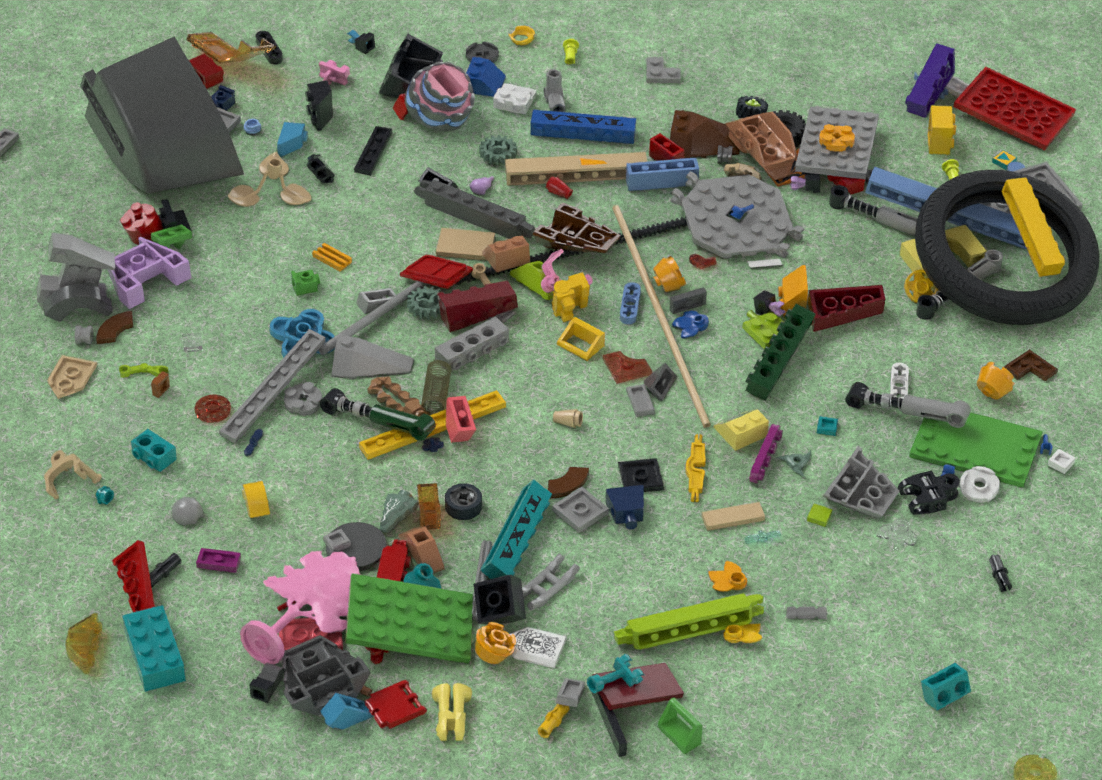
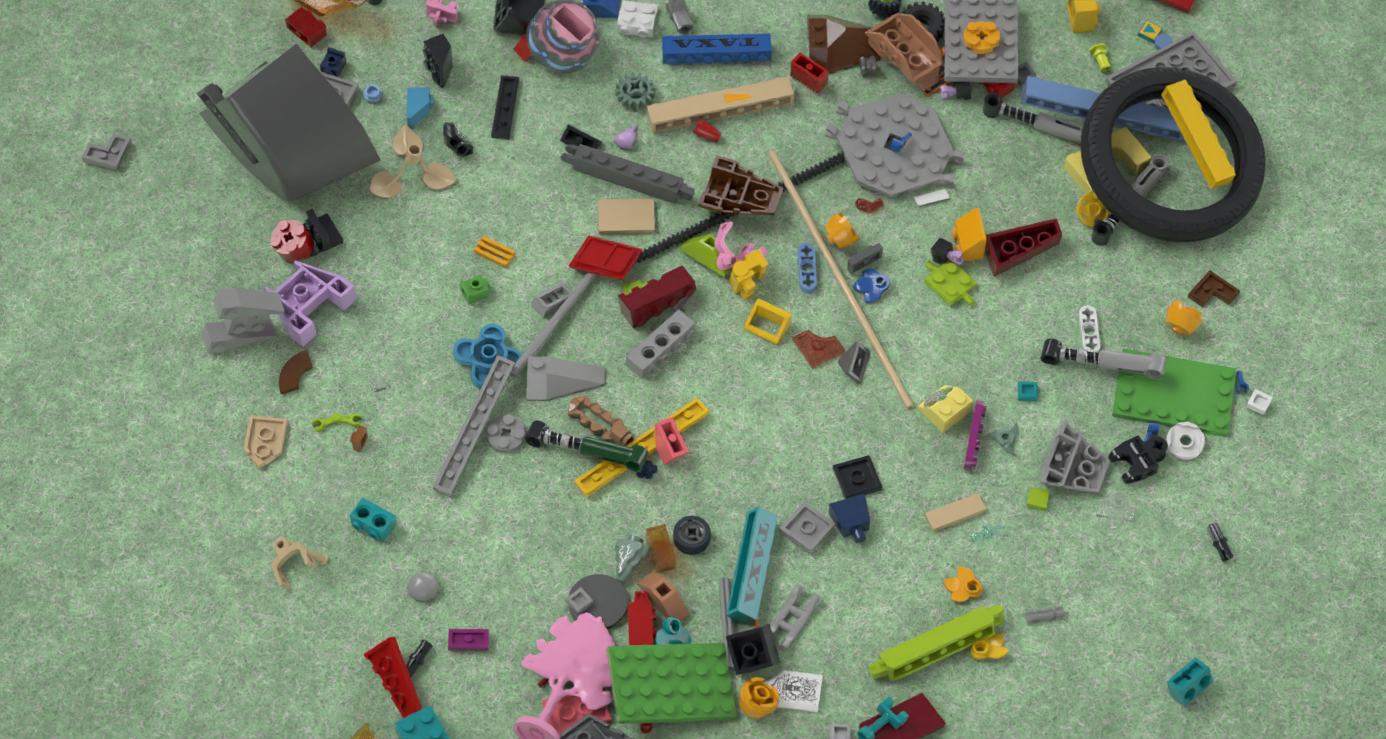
camera: 10 degrees left, 15 degrees up
(75, 297) = (249, 346): dark grey arch -> none
(83, 334) = (266, 387): light grey wheel -> none
(104, 495) = (337, 579): teal plate -> none
(174, 235) = (326, 253): bright green tile -> none
(212, 408) = (417, 457): clear red wheel -> none
(253, 442) = (468, 493): dark blue piece -> none
(256, 499) = (489, 565): yellow brick -> none
(424, 302) = (603, 298): sand green gear -> none
(429, 375) = (637, 387): olive piece -> none
(478, 273) = (649, 253): tan bar -> none
(507, 253) = (674, 228): nougat slope -> none
(568, 417) = (774, 419): tan cone -> none
(572, 480) = (789, 496): reddish brown tile -> none
(640, 400) = (839, 386): light grey tile -> none
(660, 173) = (809, 101): medium blue brick -> none
(696, 475) = (910, 469): yellow piece -> none
(741, 169) = (890, 85): tan plate -> none
(780, 352) = (985, 272): dark green brick -> none

